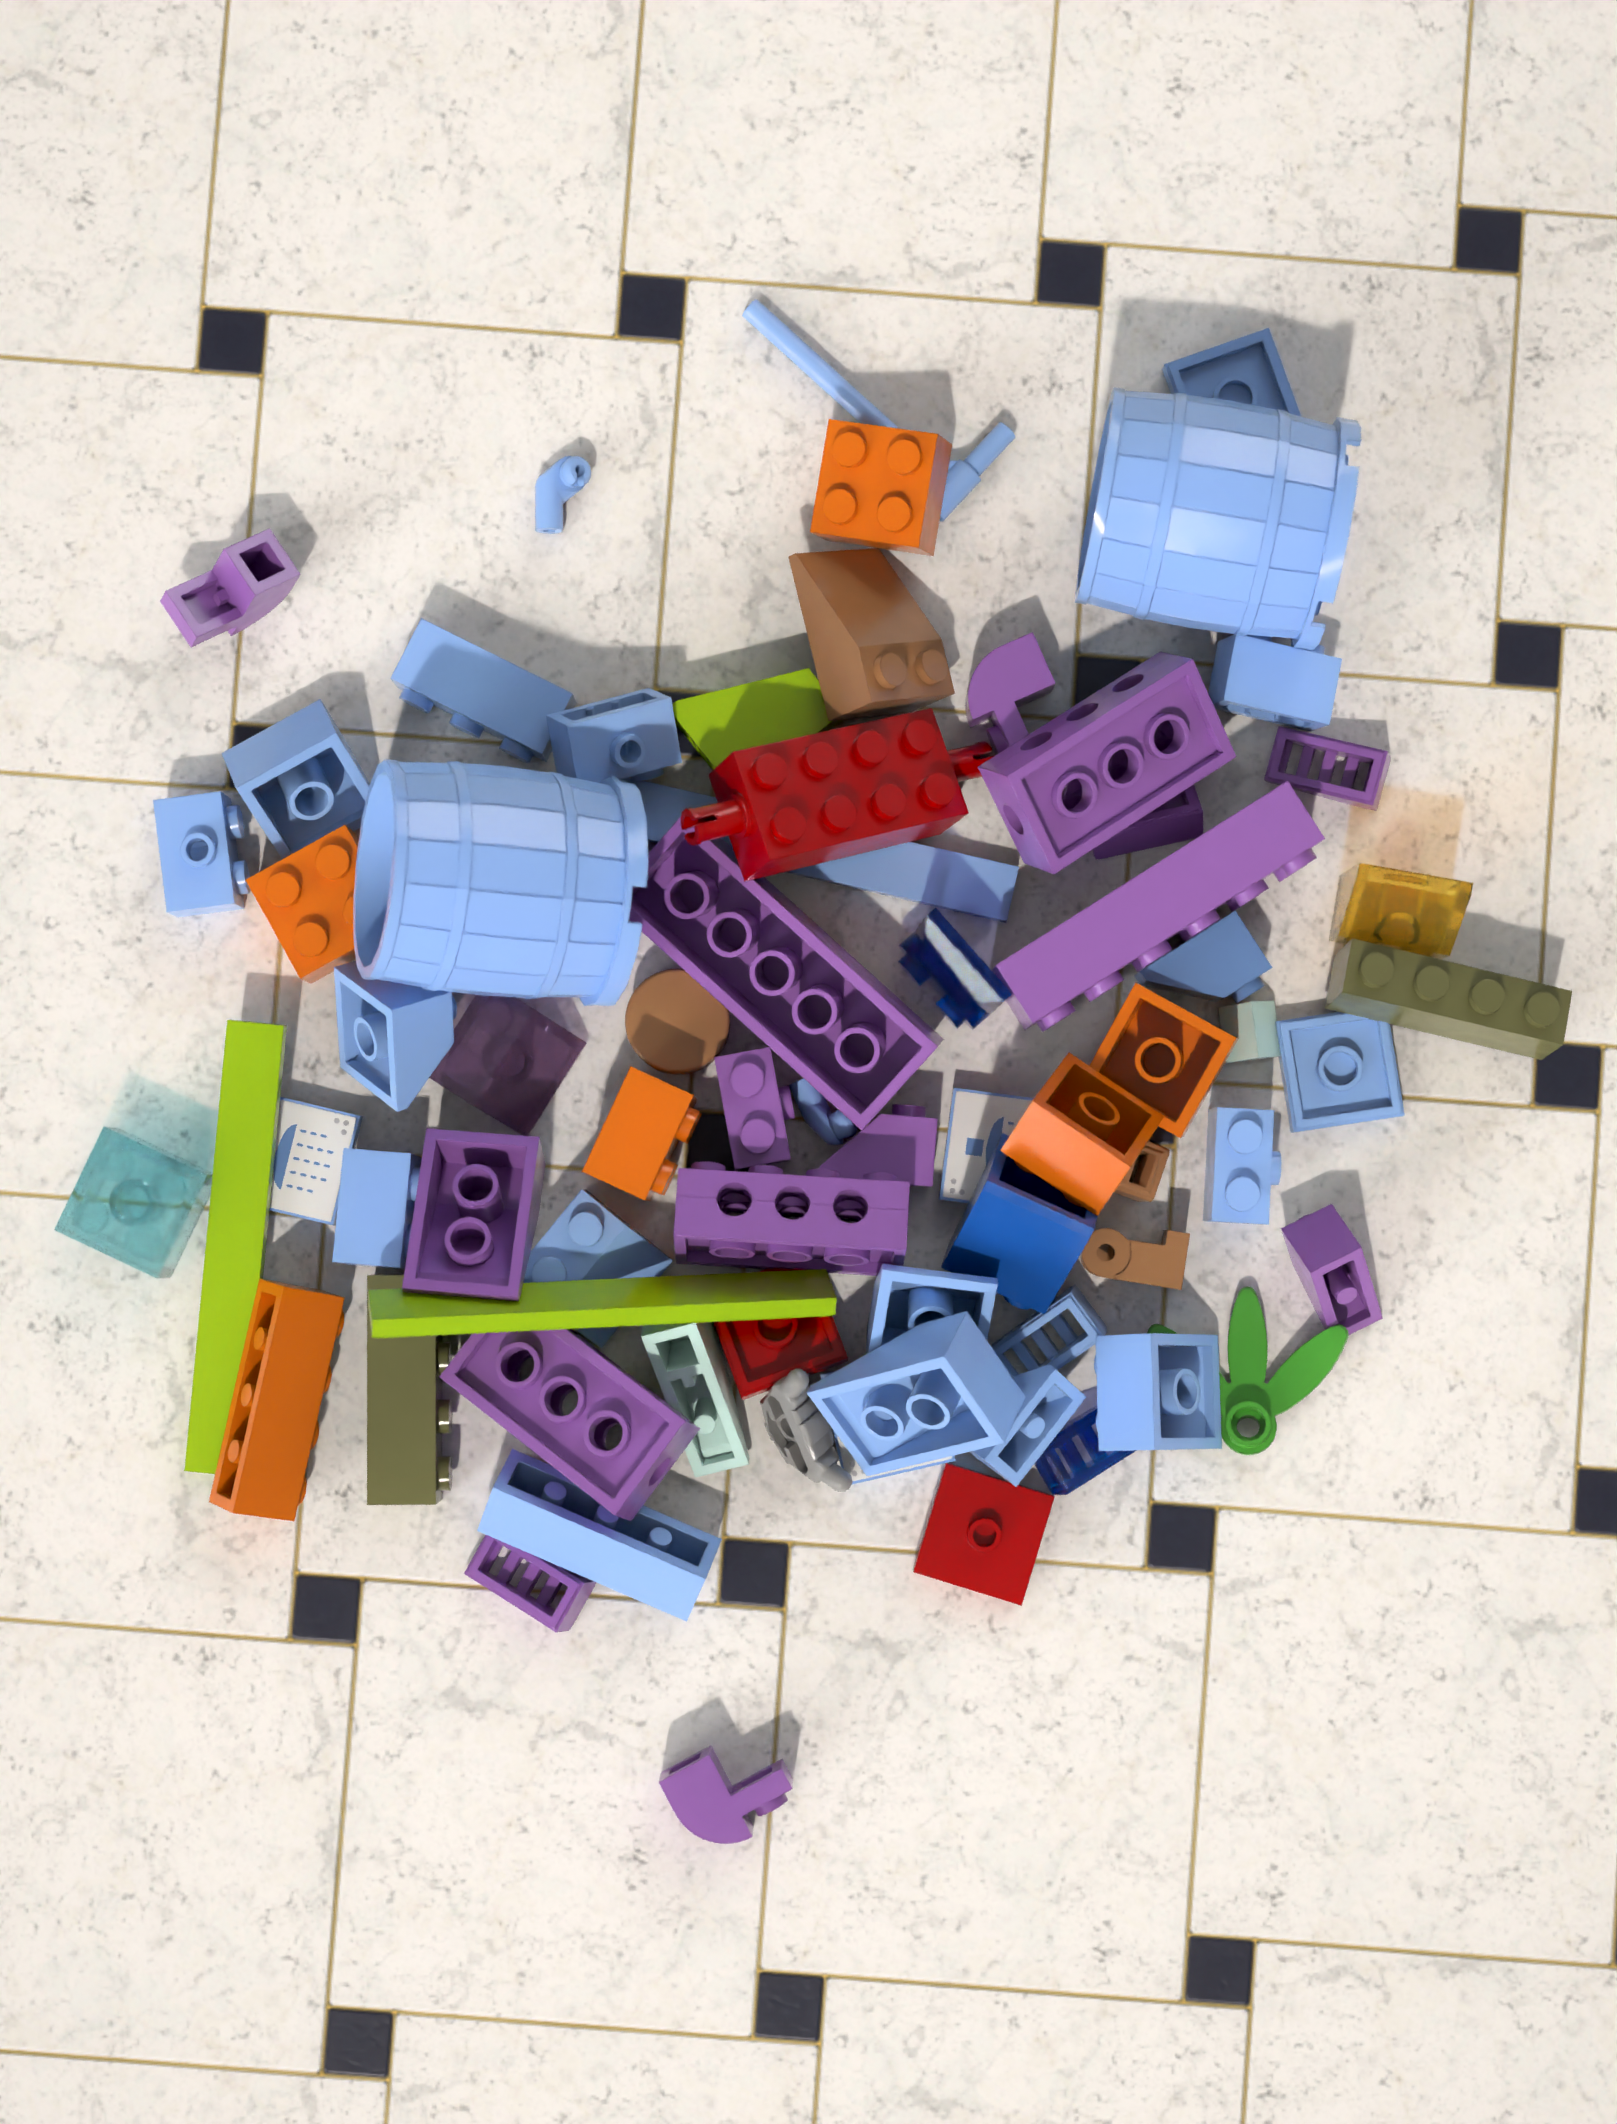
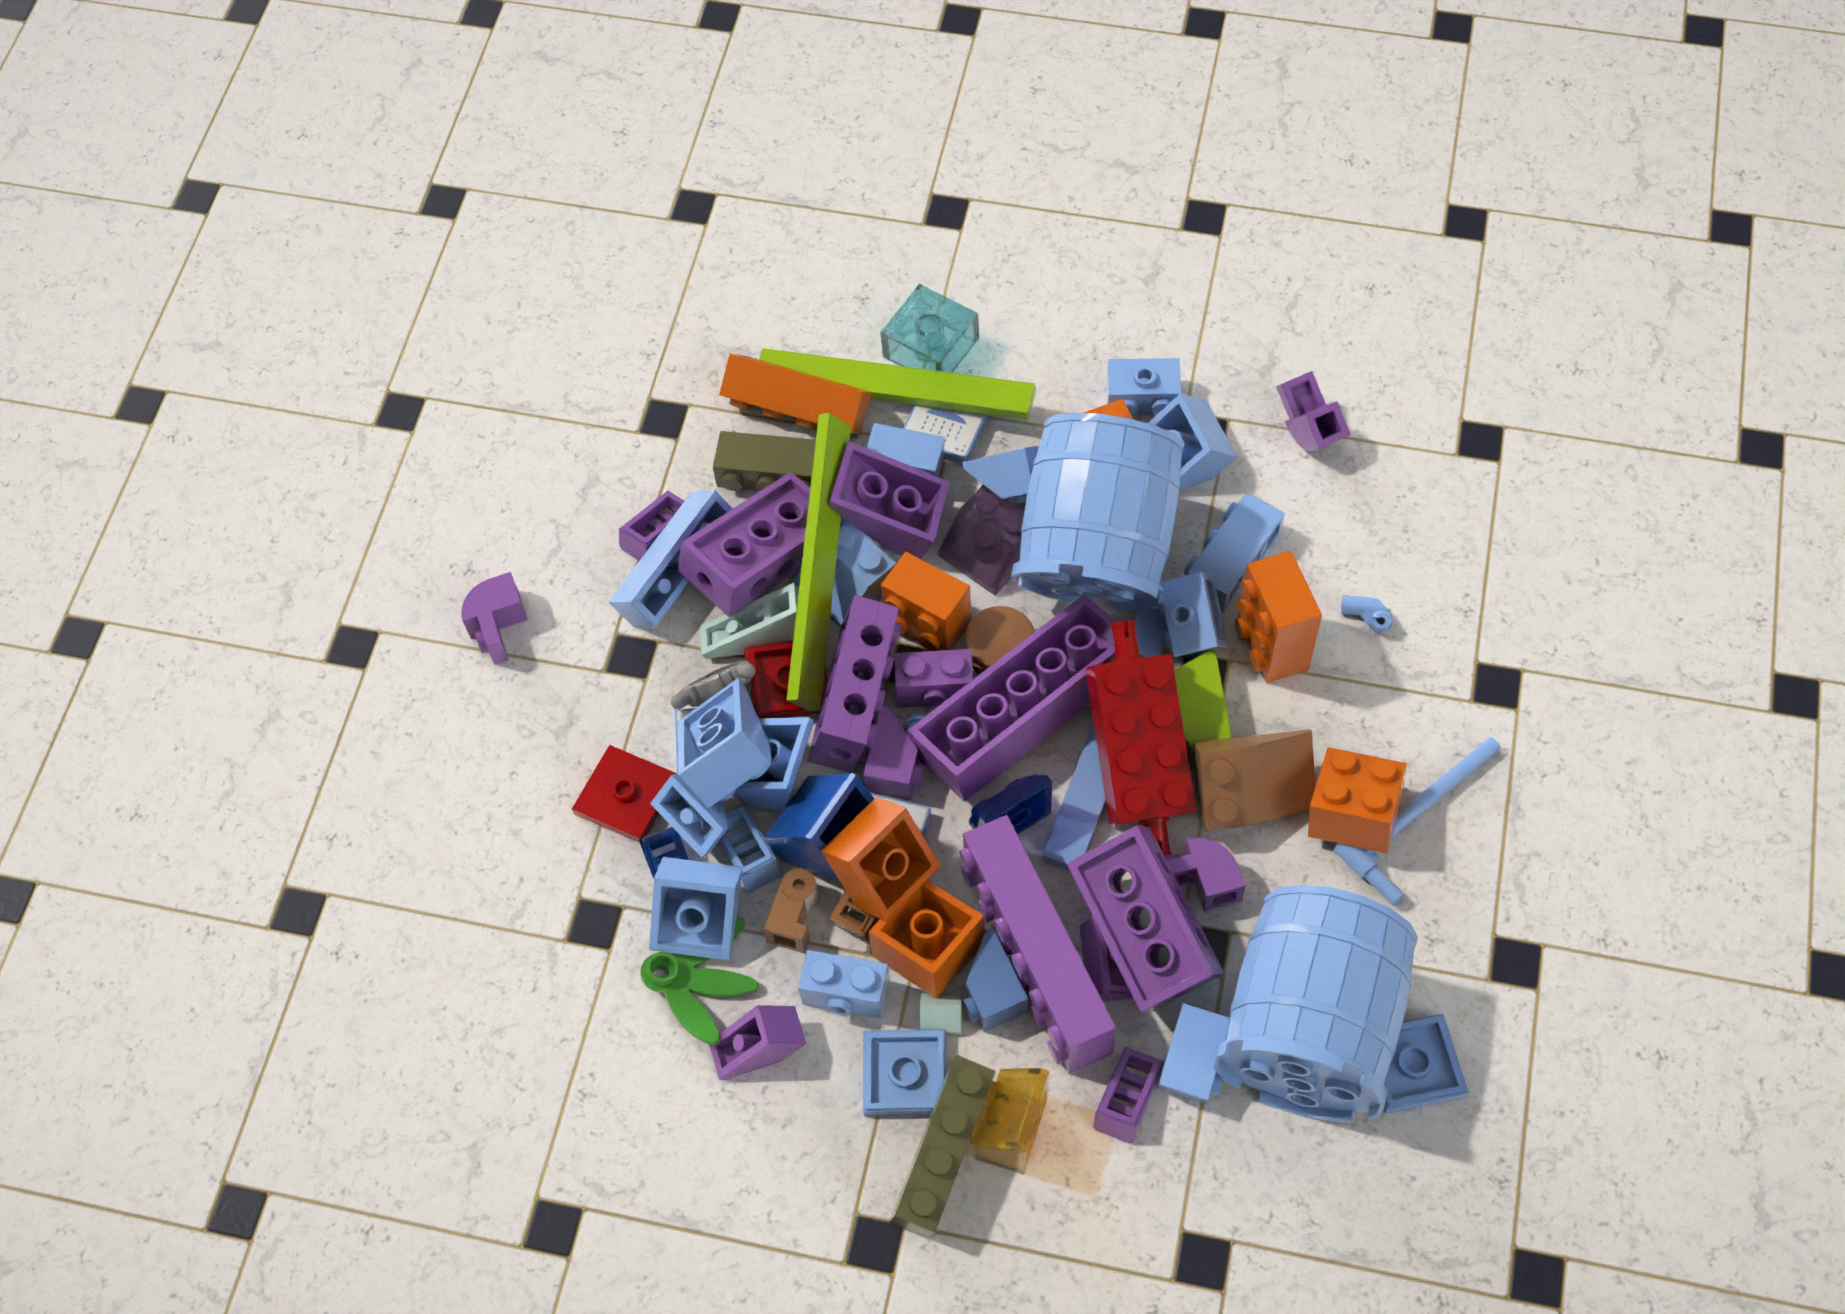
camera: 105 degrees right, 25 degrees down
(618, 612) = (1278, 617): none -> orange brick

